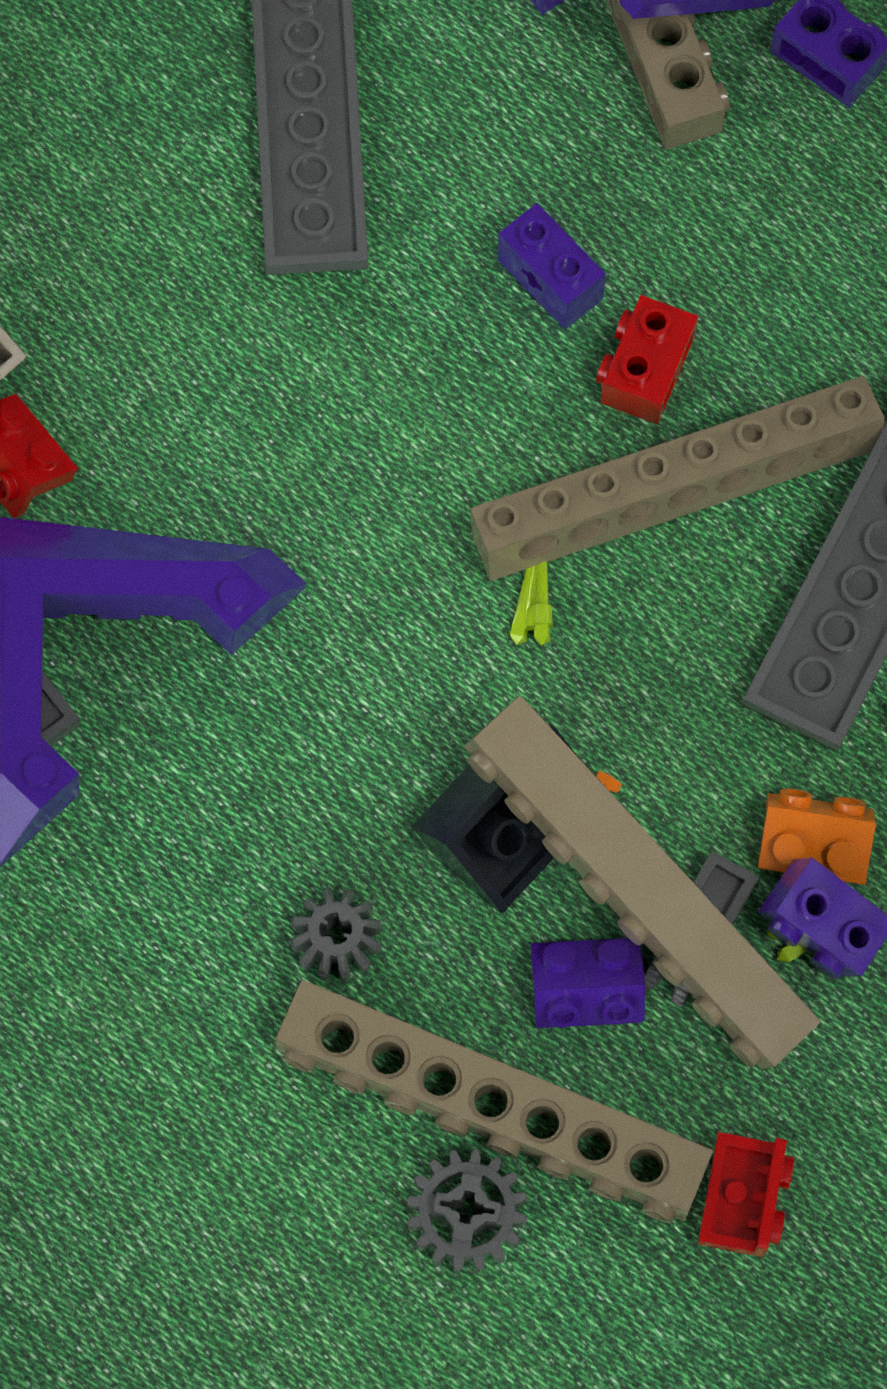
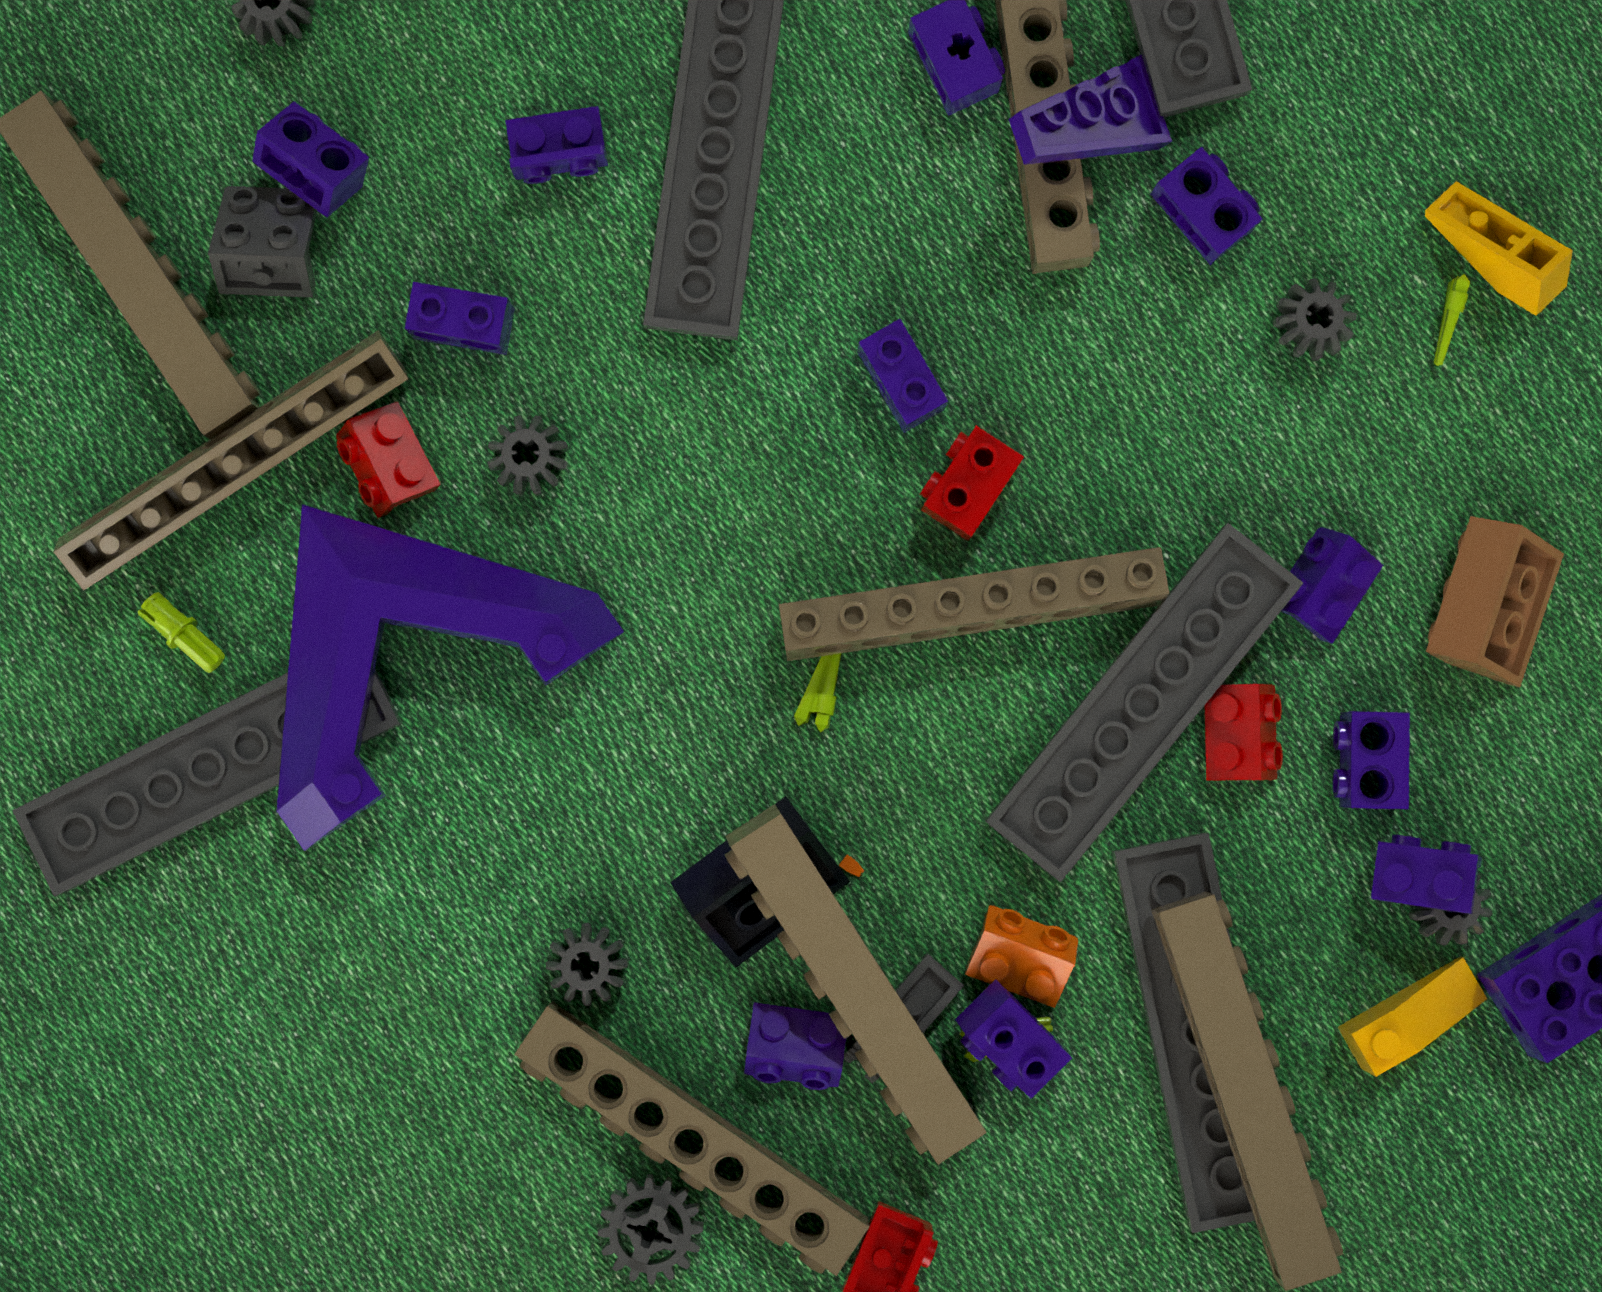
camera: 10 degrees right, 15 degrees up
(68, 295) = (459, 318): none -> dark purple brick
(138, 113) = (556, 144): none -> dark purple bracket
(171, 435) = (530, 439): none -> dark grey gear

